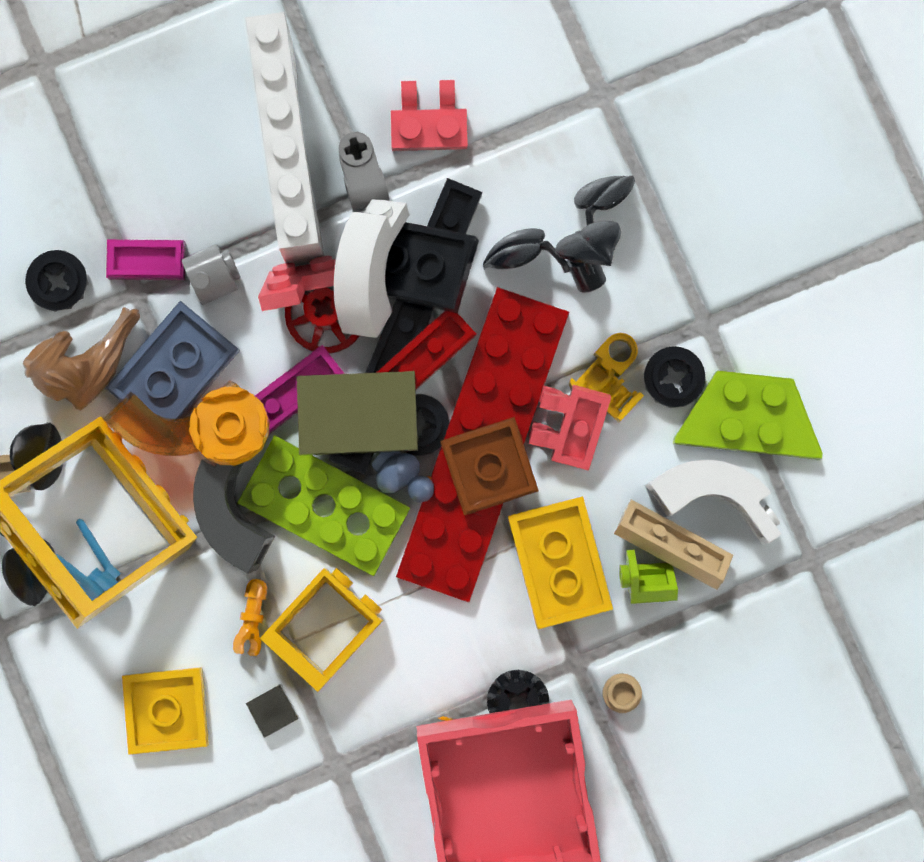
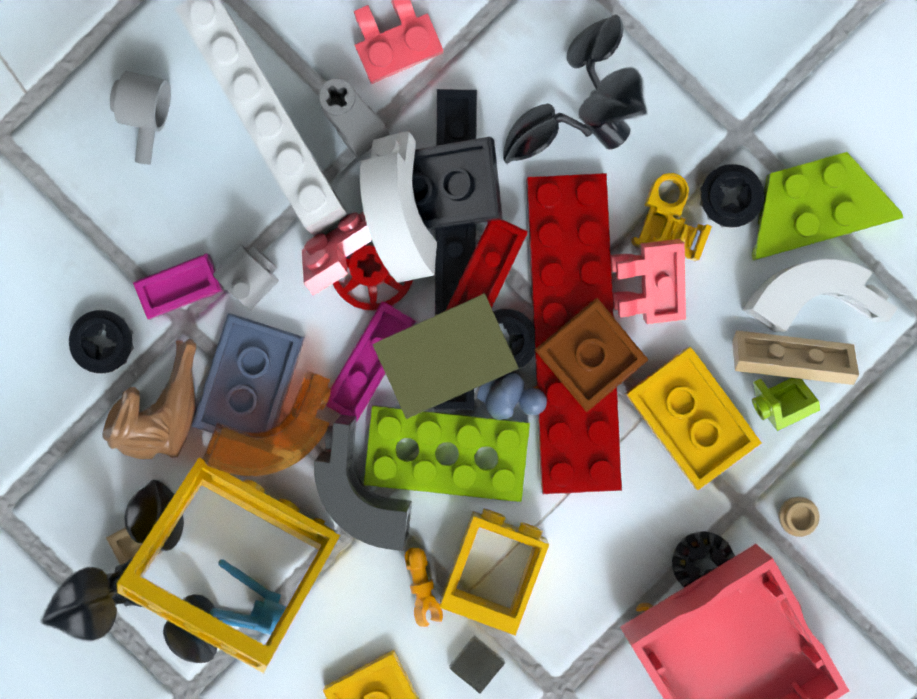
camera: 15 degrees left, 5 degrees up
(183, 88) = (144, 104): none -> light grey piece
(229, 426) = (327, 419): light orange tile -> none

